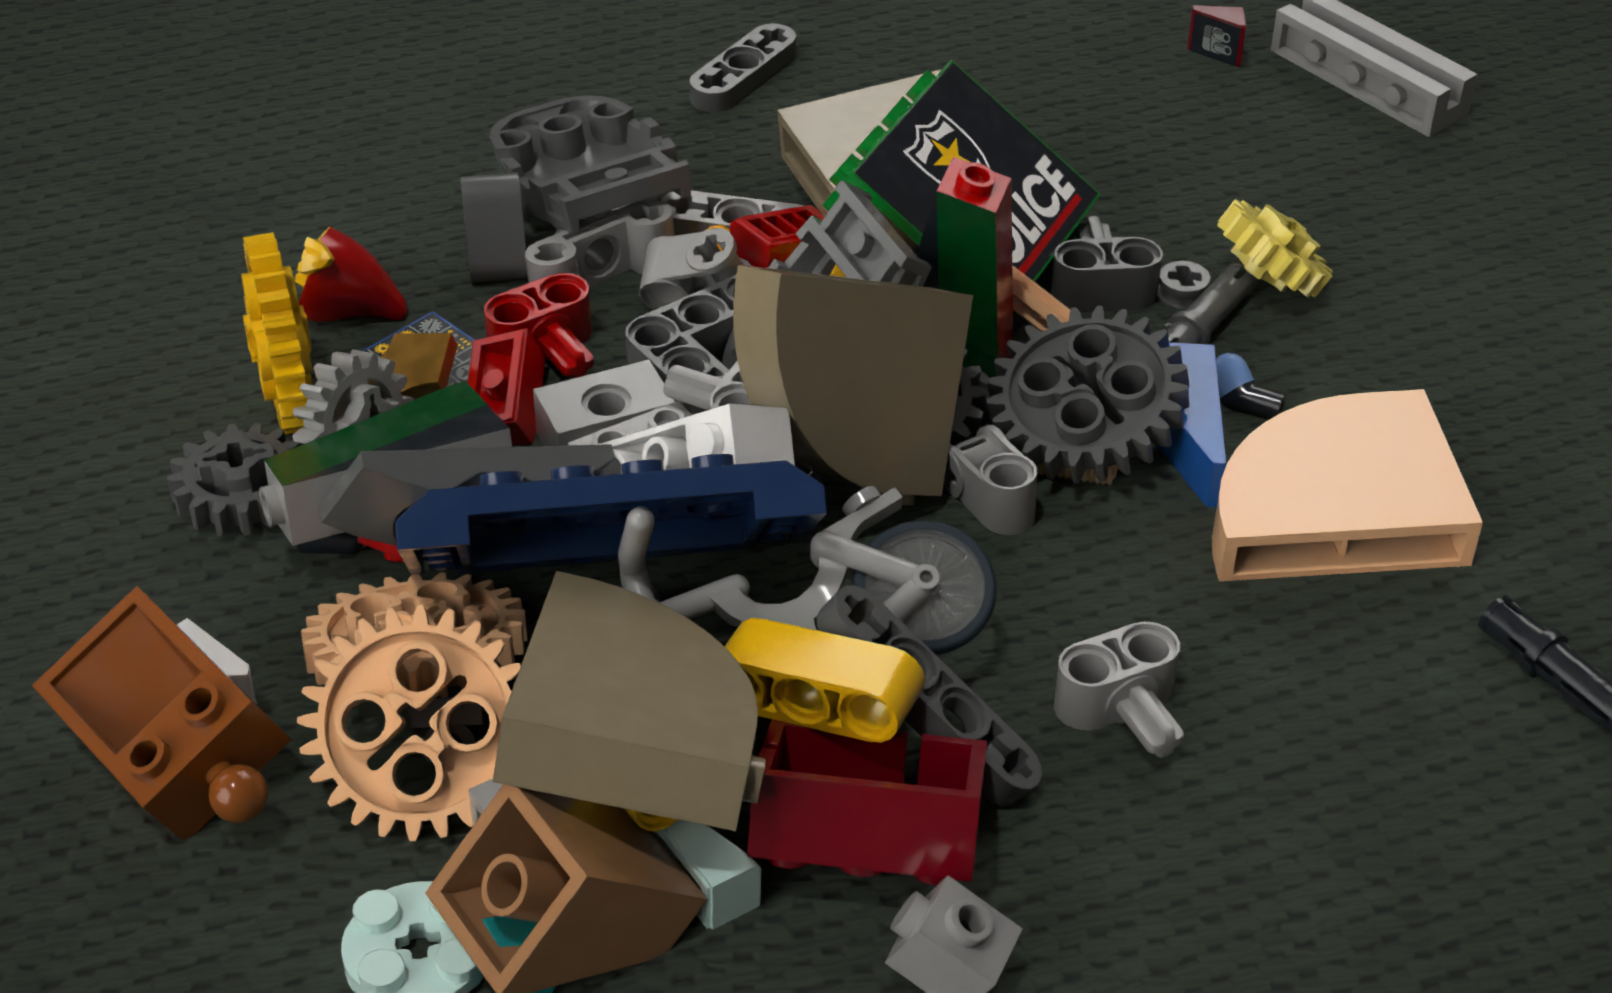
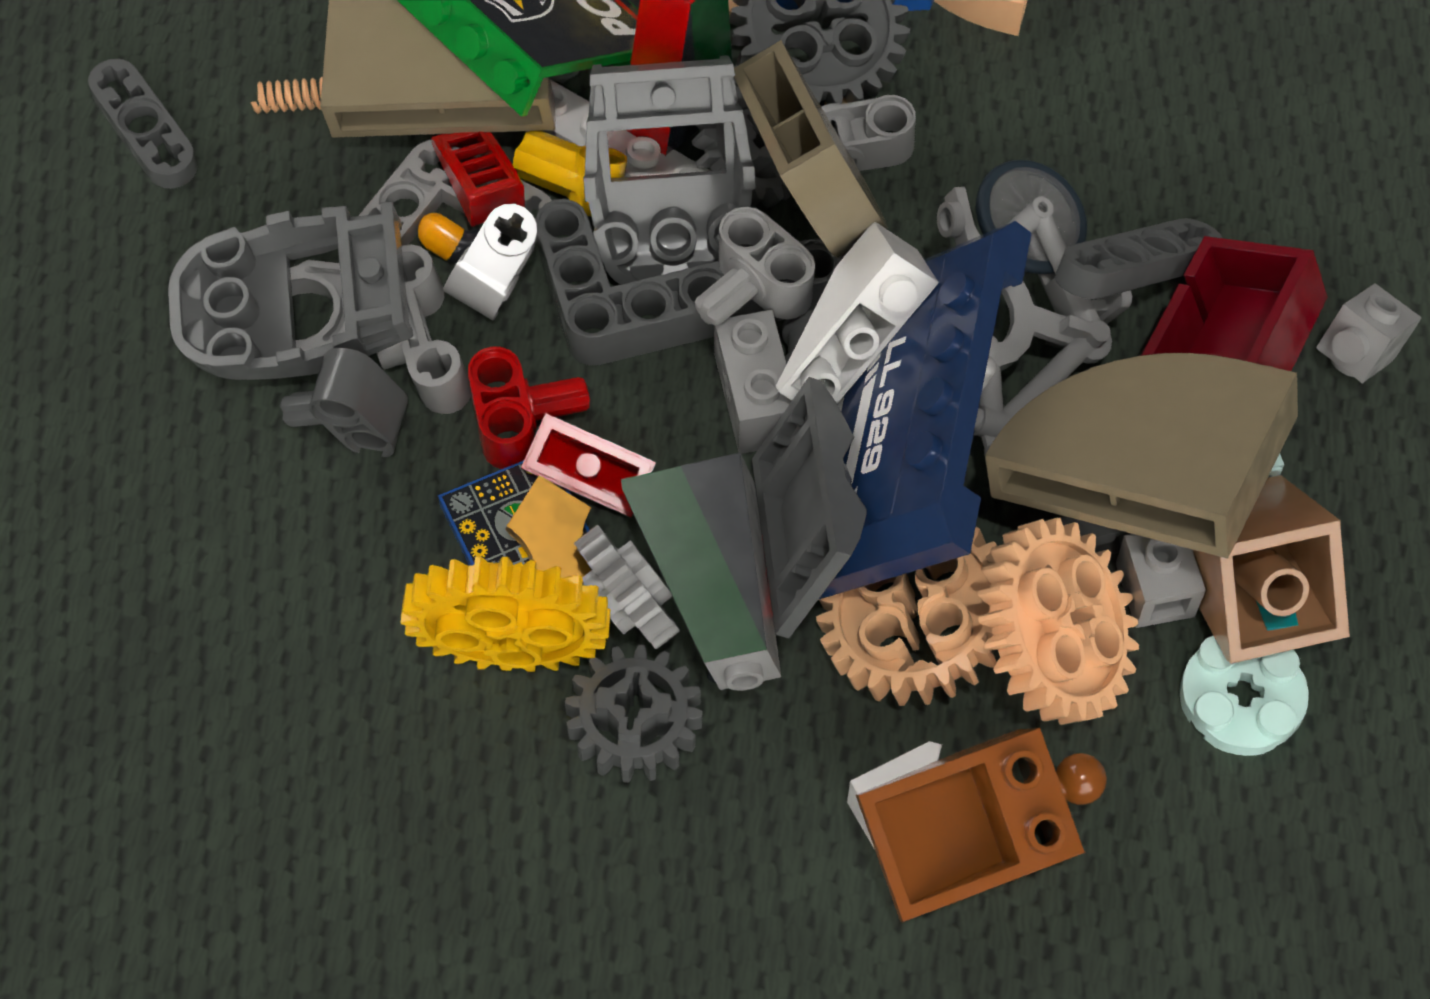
camera: 70 degrees left, 20 degrees up
(345, 281) = (348, 556): red hat -> none
(596, 402) = (667, 362): light grey brick -> none
(827, 679) = (1135, 311): yellow beam -> none
(1121, 680) = (1129, 137): light grey beam -> none

